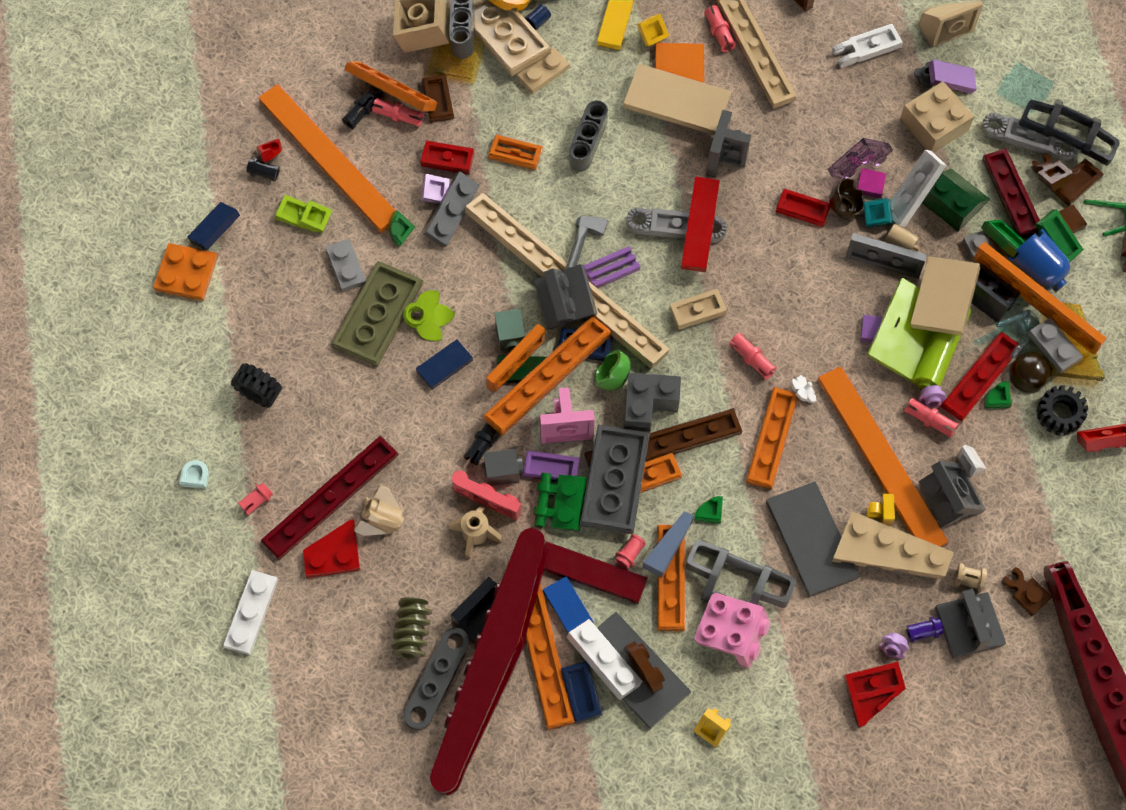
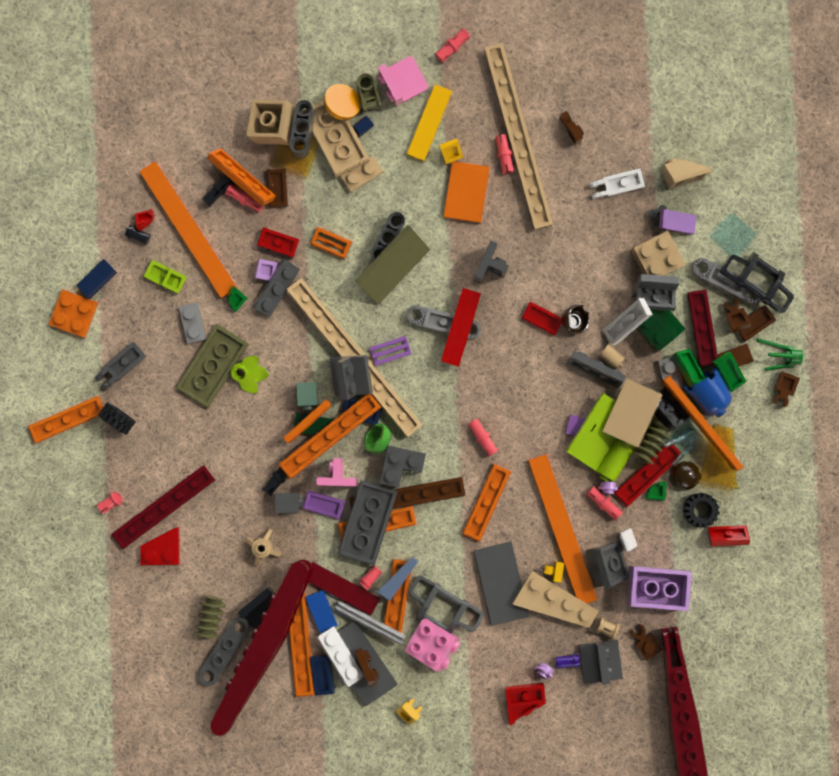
camera: 10 degrees right, 20 degrees up
(185, 402) = (66, 419): none -> orange tile
(194, 475) = (68, 477): light aqua tile -> none
(250, 612) = (100, 586): white plate -> none
(255, 325) = (121, 364): none -> dark grey hinge
(381, 514) = (196, 528): tan brick -> none
(444, 364) = (256, 413): dark blue tile -> none
(486, 495) = (274, 522): coral plate -> none
(568, 501) = (332, 534): green plate -> none
(585, 224) = (375, 311): piece -> none
(599, 162) = (392, 264): none -> olive tile
(639, 610) = (370, 622): none -> light grey axle
(676, 99) = (460, 216): tan tile -> none
(698, 309) = (448, 394): tan plate -> none
(710, 510) = (432, 552): green tile -> none
(803, 389) = (516, 468): white plant -> none
(864, 152) = (593, 287): clear purple plate -> none
(871, 182) = (597, 304): dark pink tile -> none
(878, 213) = (597, 332): teal tile -> none
(948, 143) = (657, 291): none -> dark grey bracket
(979, 331) = (652, 442): none -> olive piece
(1029, 511) = (658, 588): none -> lavender brick
(1055, 345) = (706, 461): light grey plate -> none

